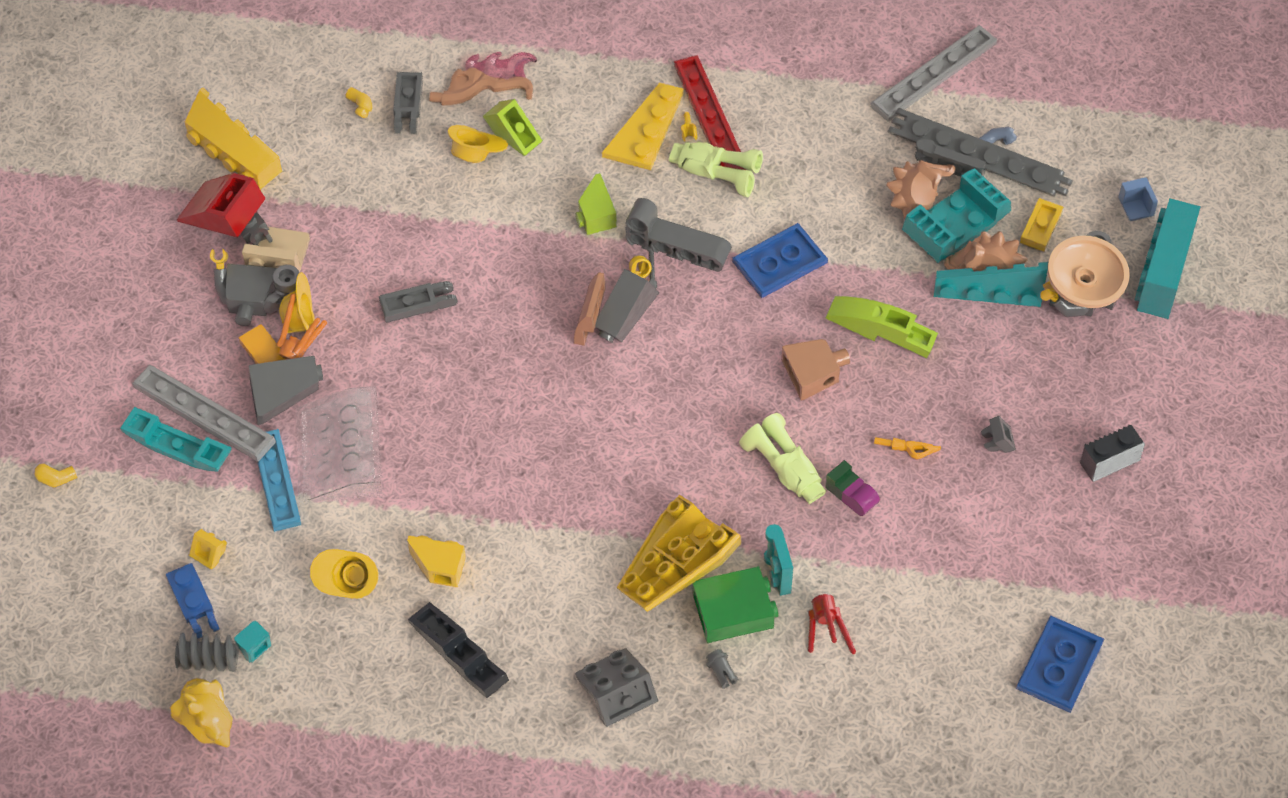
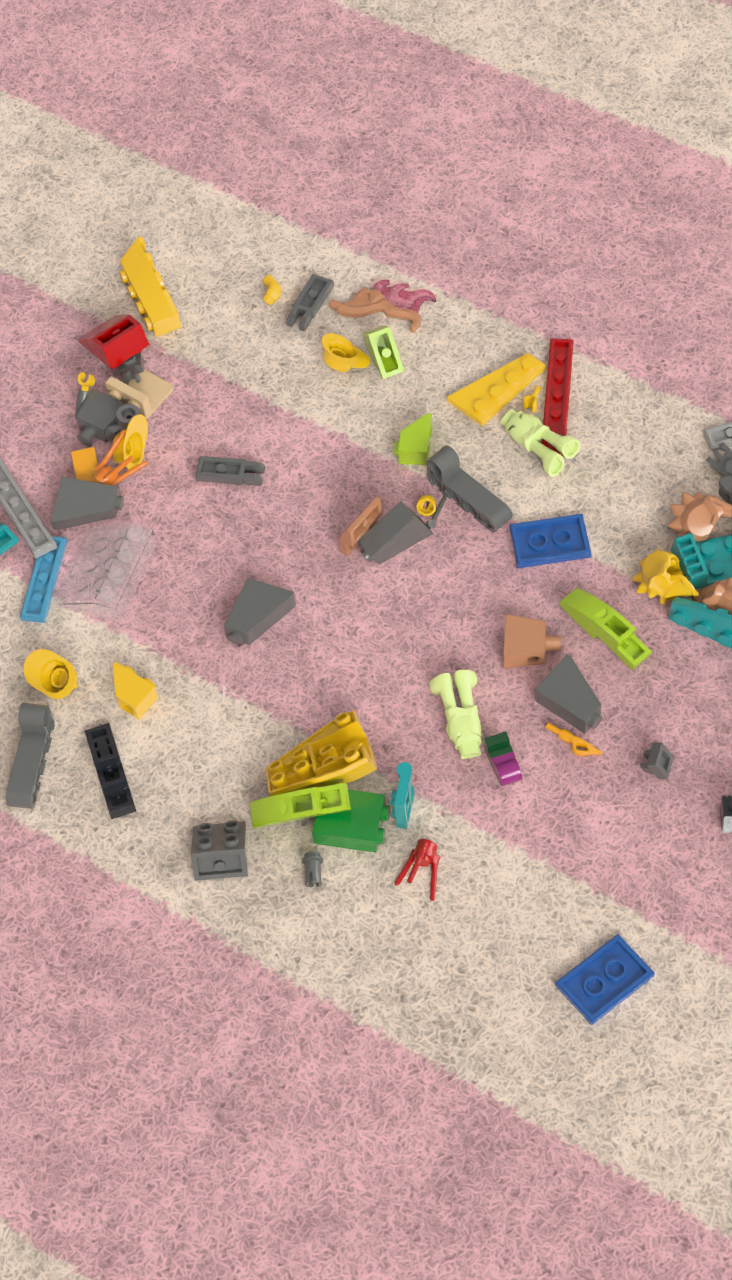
camera: 30 degrees right, 0 degrees up
(367, 666) = (29, 763): none -> dark grey beam
(525, 431) = (256, 611): none -> dark grey slope
(680, 609) = (299, 805): none -> lime slope
(884, 404) = (569, 696): none -> dark grey slope
(911, 259) = (663, 577): none -> yellow head

